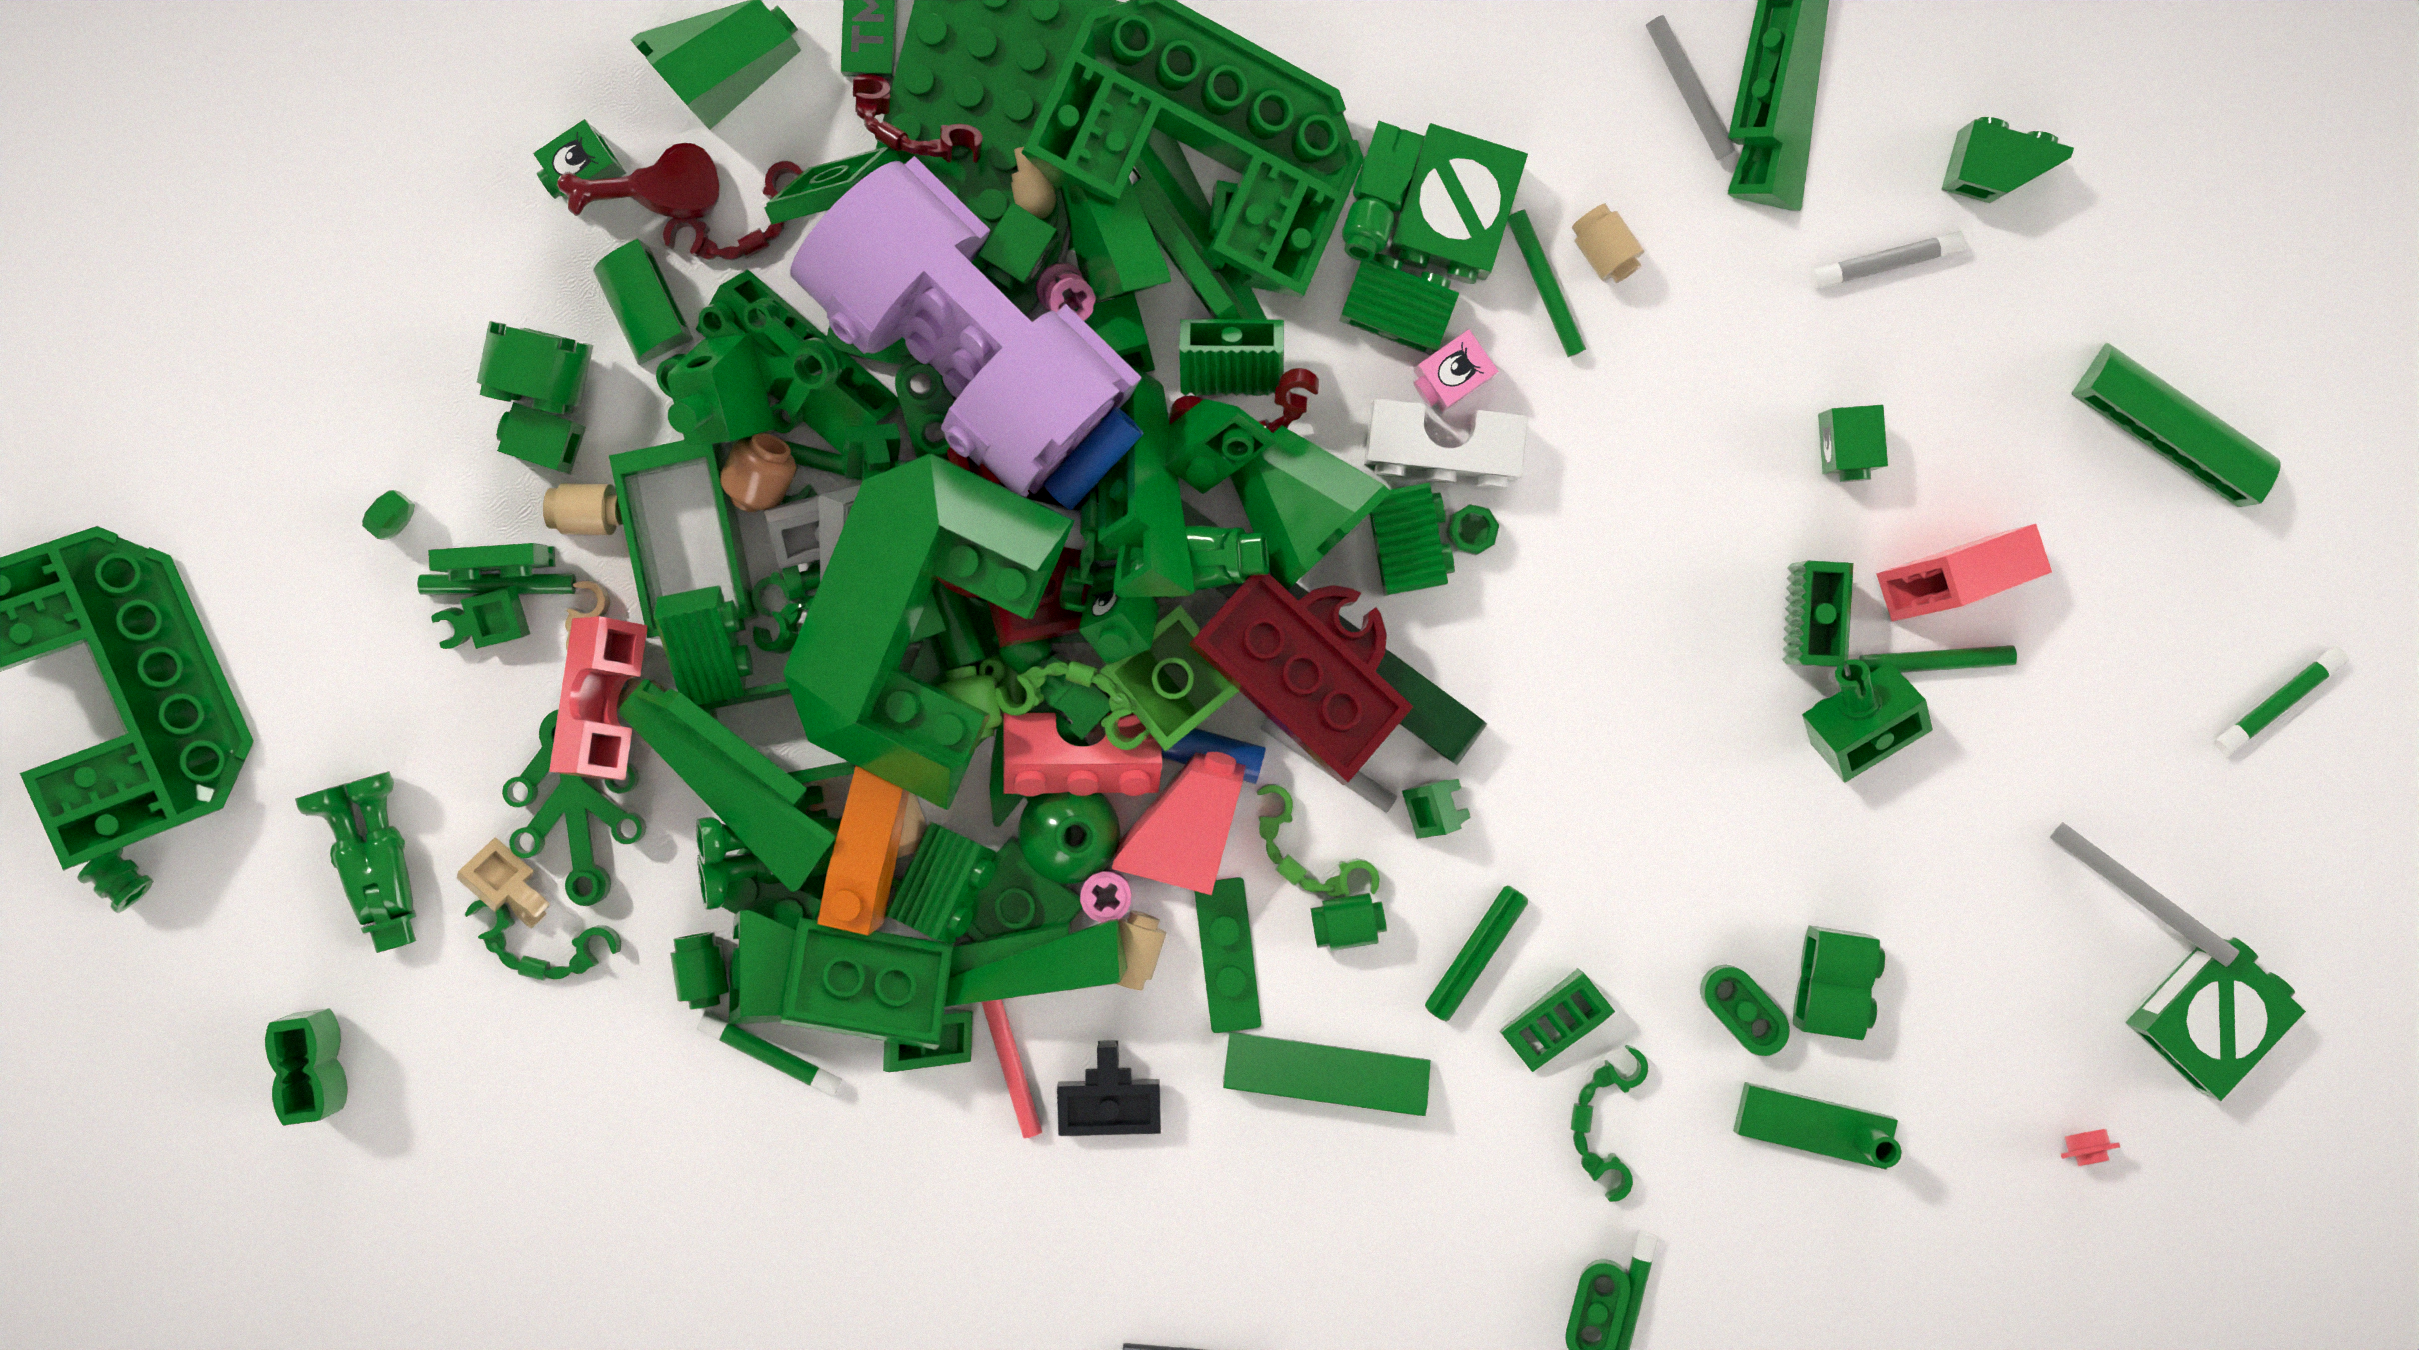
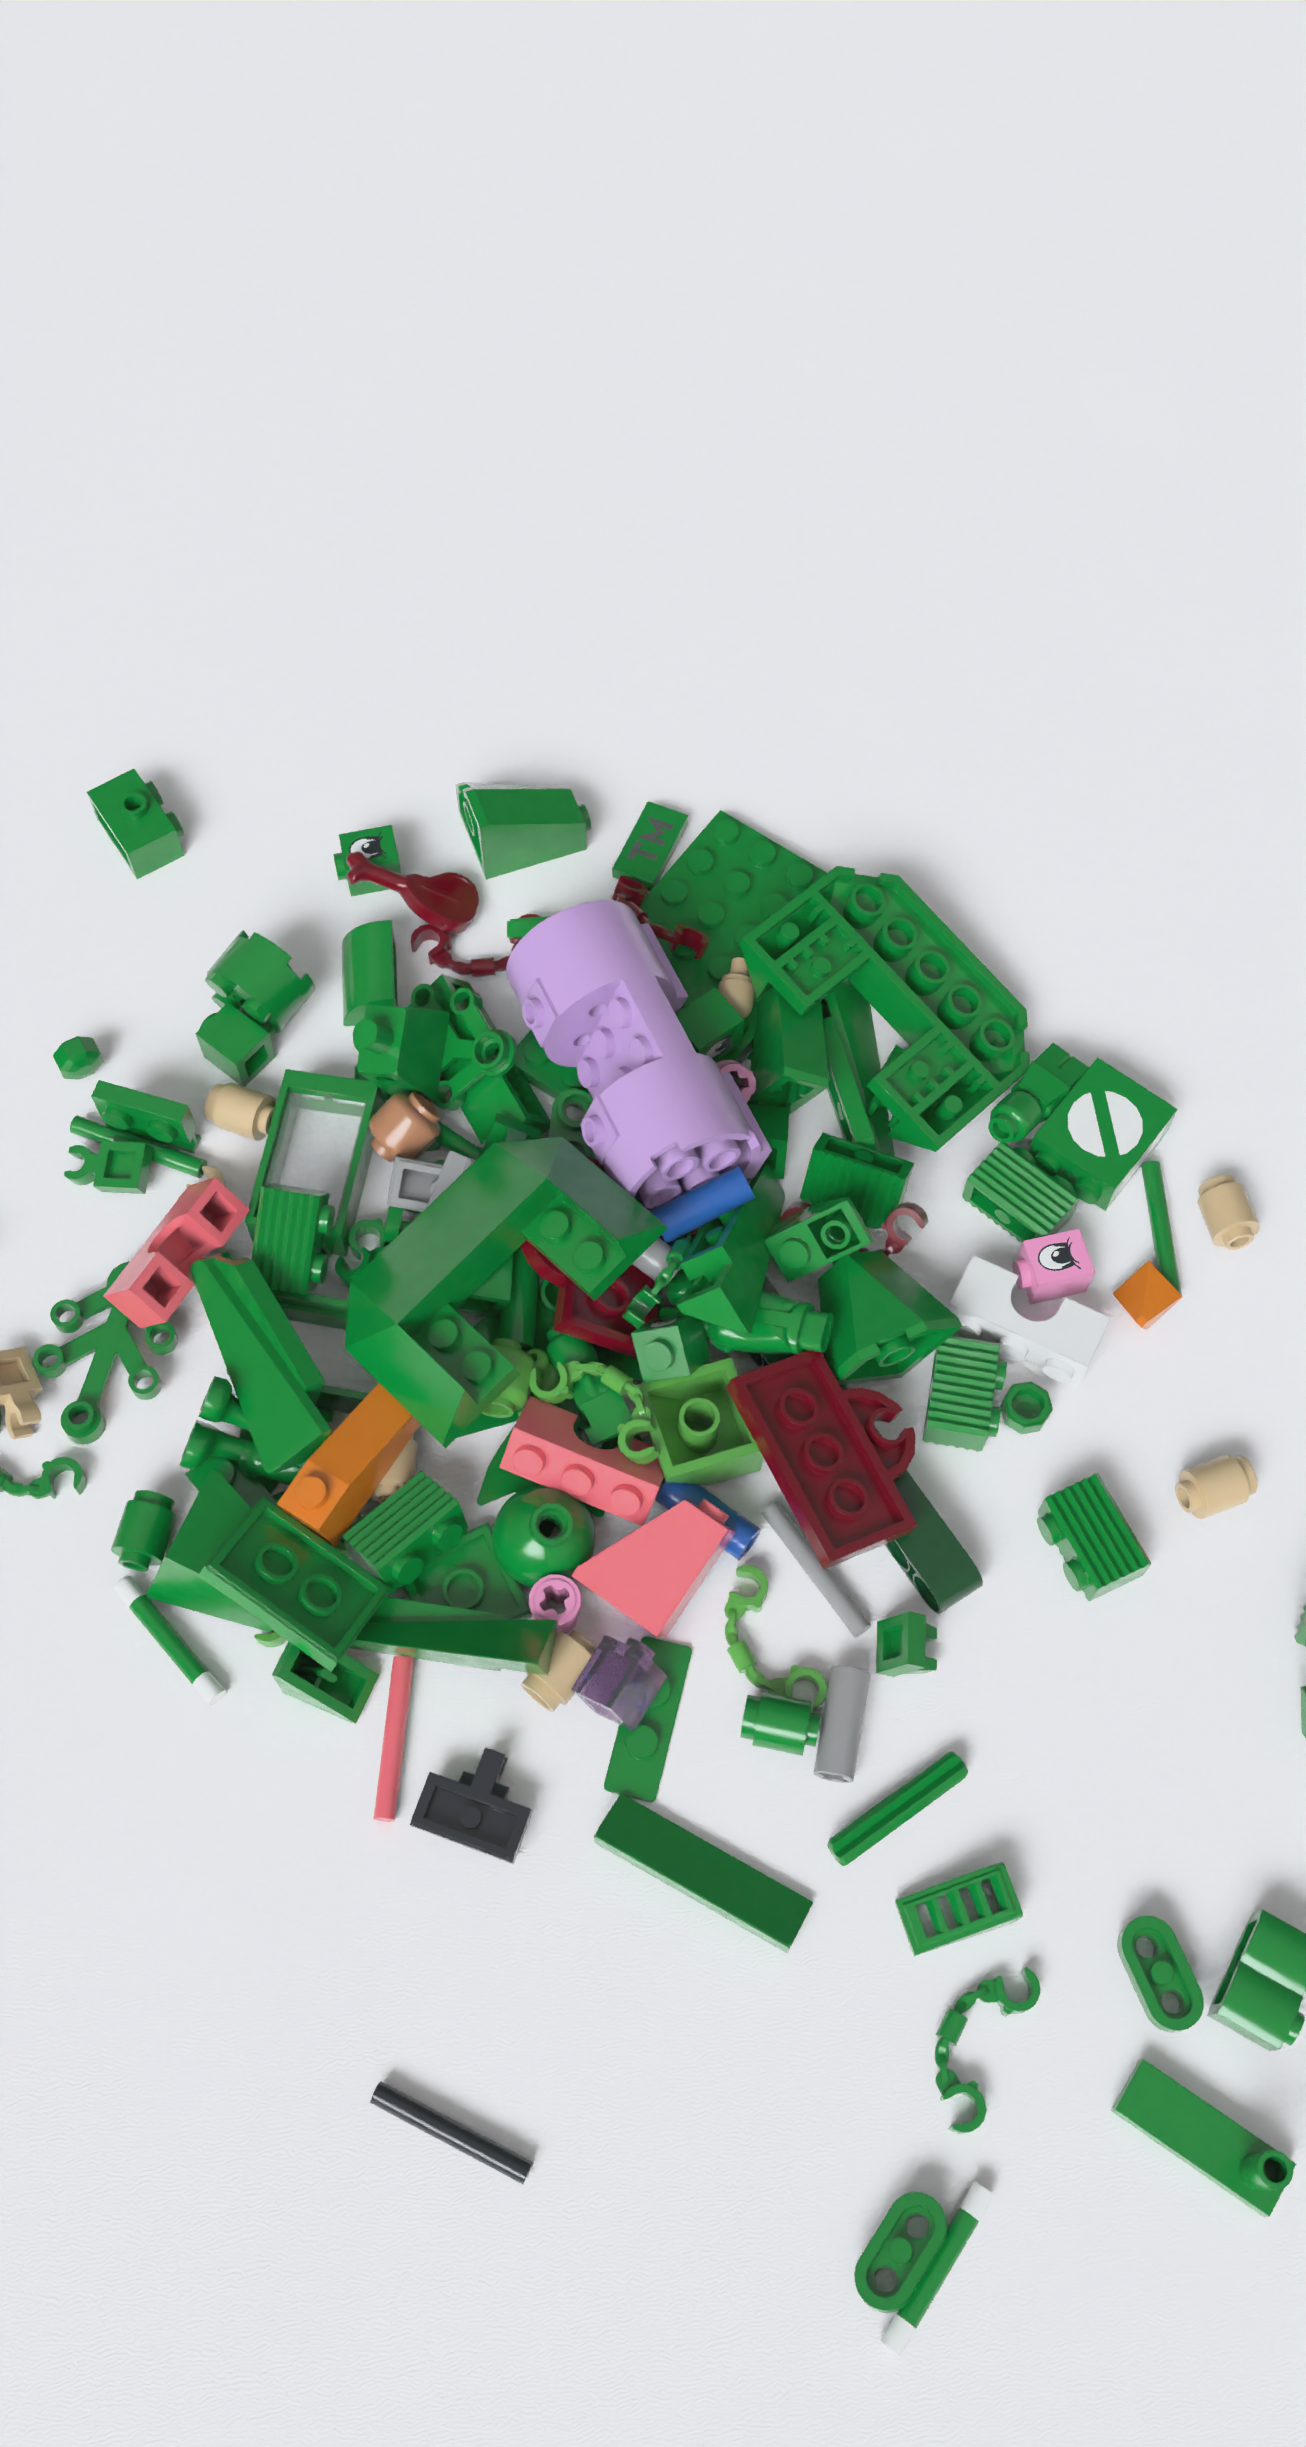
camera: 20 degrees right, 25 degrees down
(304, 213) = (137, 823): none -> green brick
(1192, 943) = (620, 1681): none -> clear purple brick
(1402, 900) = (842, 1724): none -> light grey piece
(1553, 367) = (1147, 1295): none -> orange slope
(1573, 640) = (1092, 1538): none -> green brick
(1673, 542) = (1216, 1485): none -> tan brick

